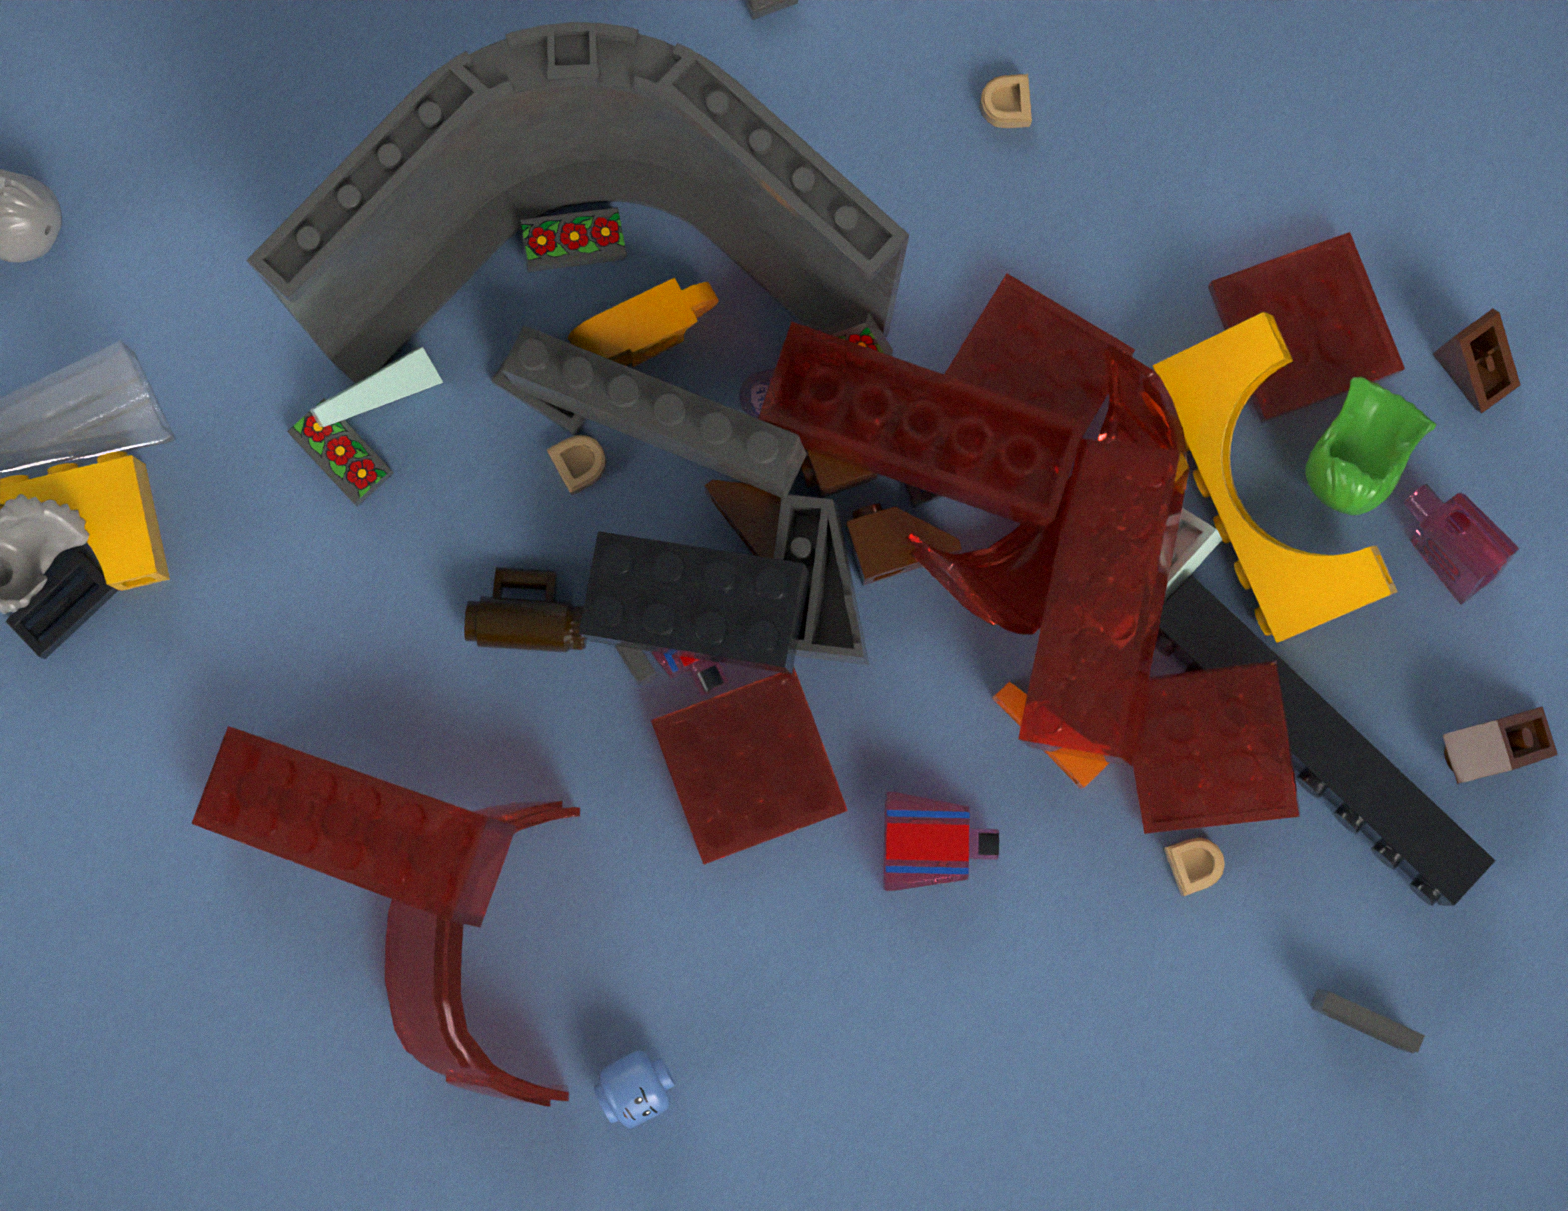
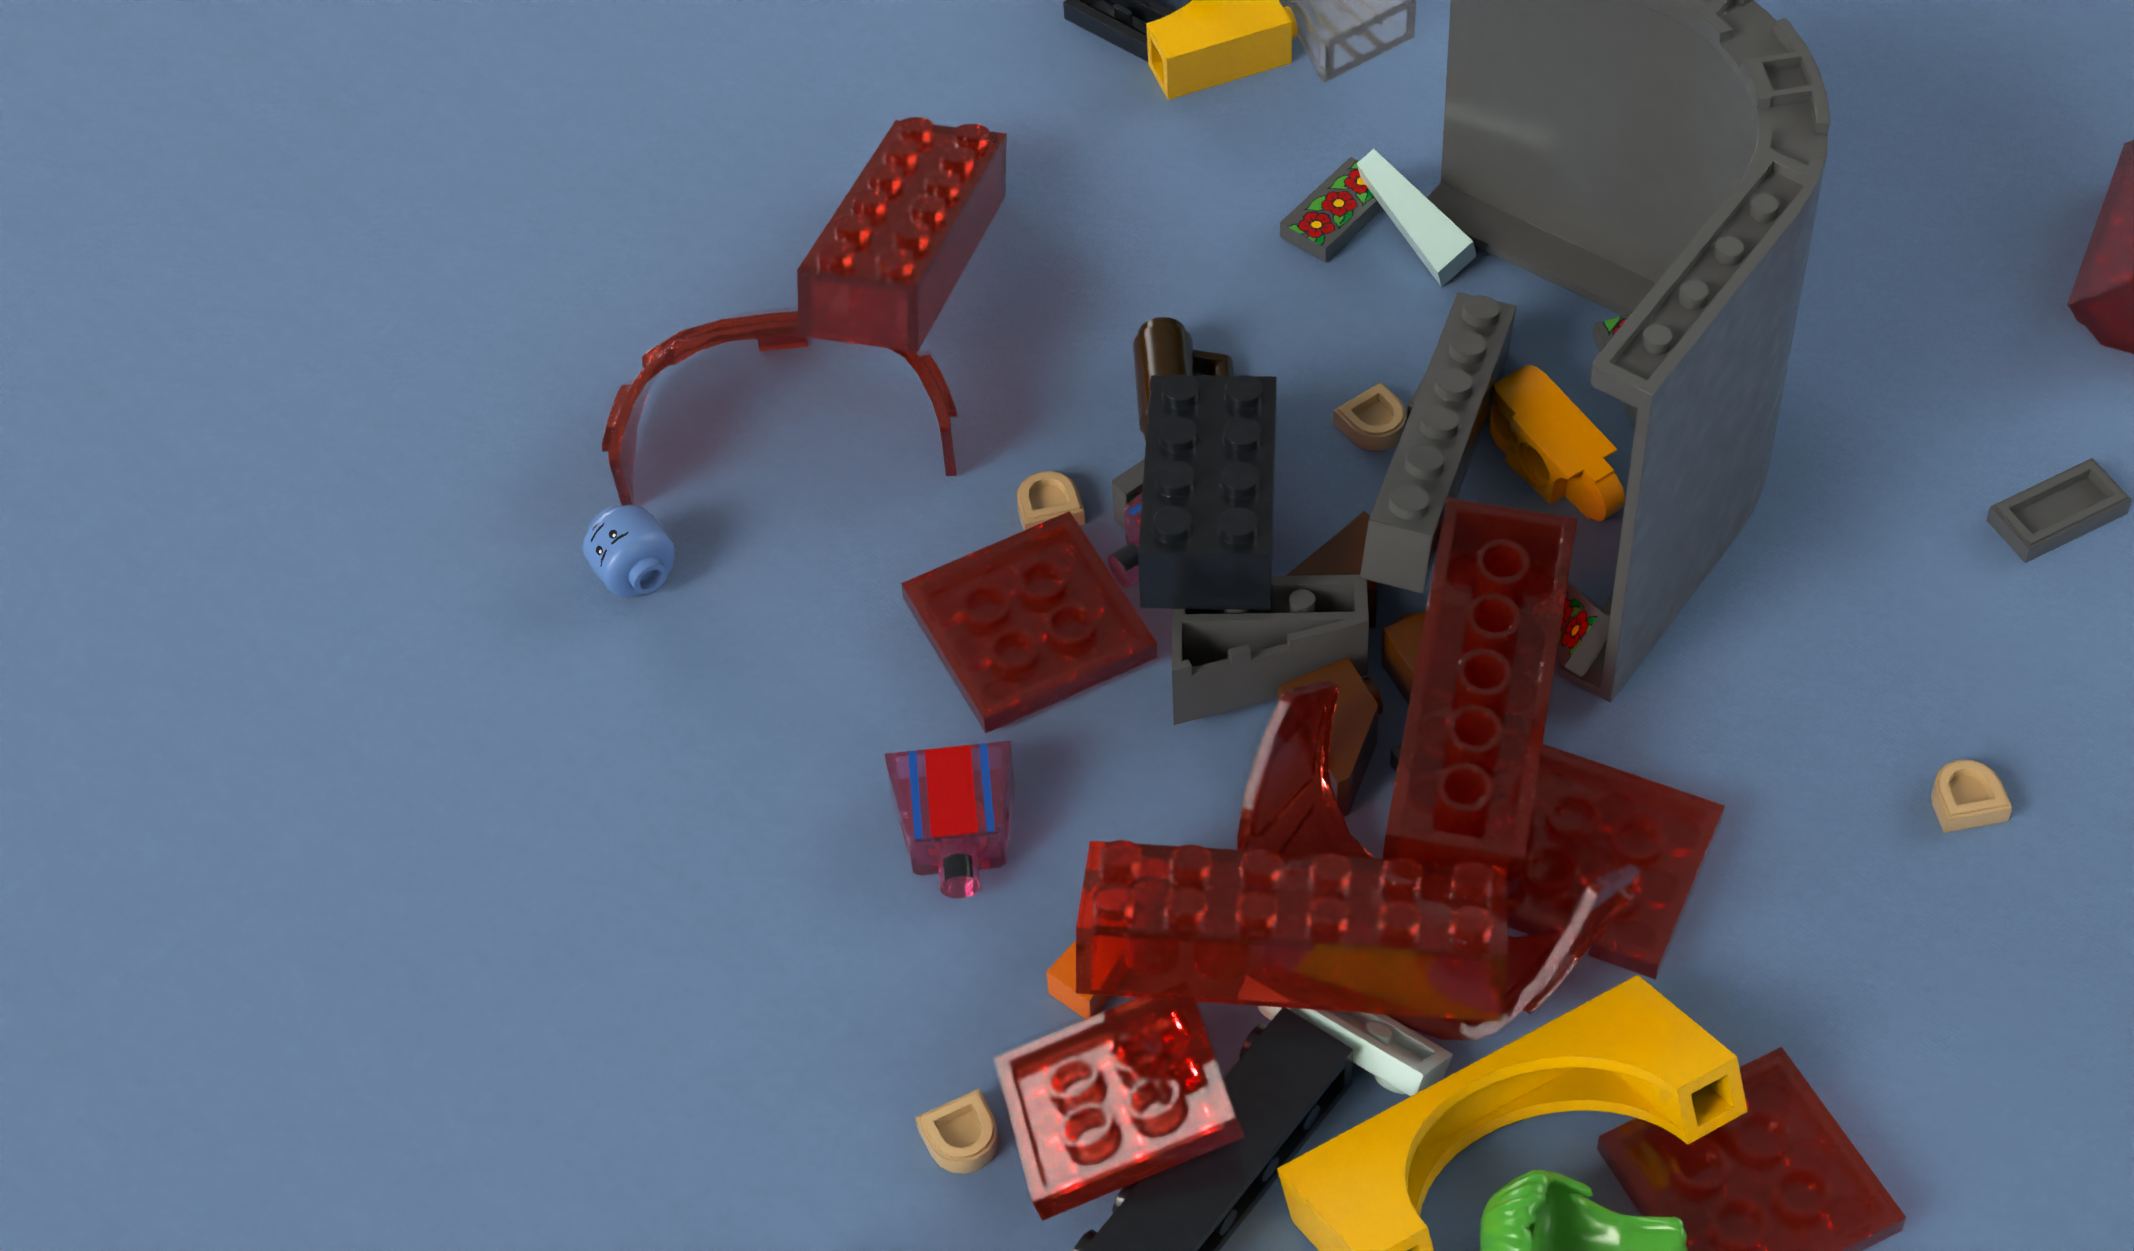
camera: 90 degrees right, 30 degrees down
(623, 736) = (1046, 497): none -> tan tile

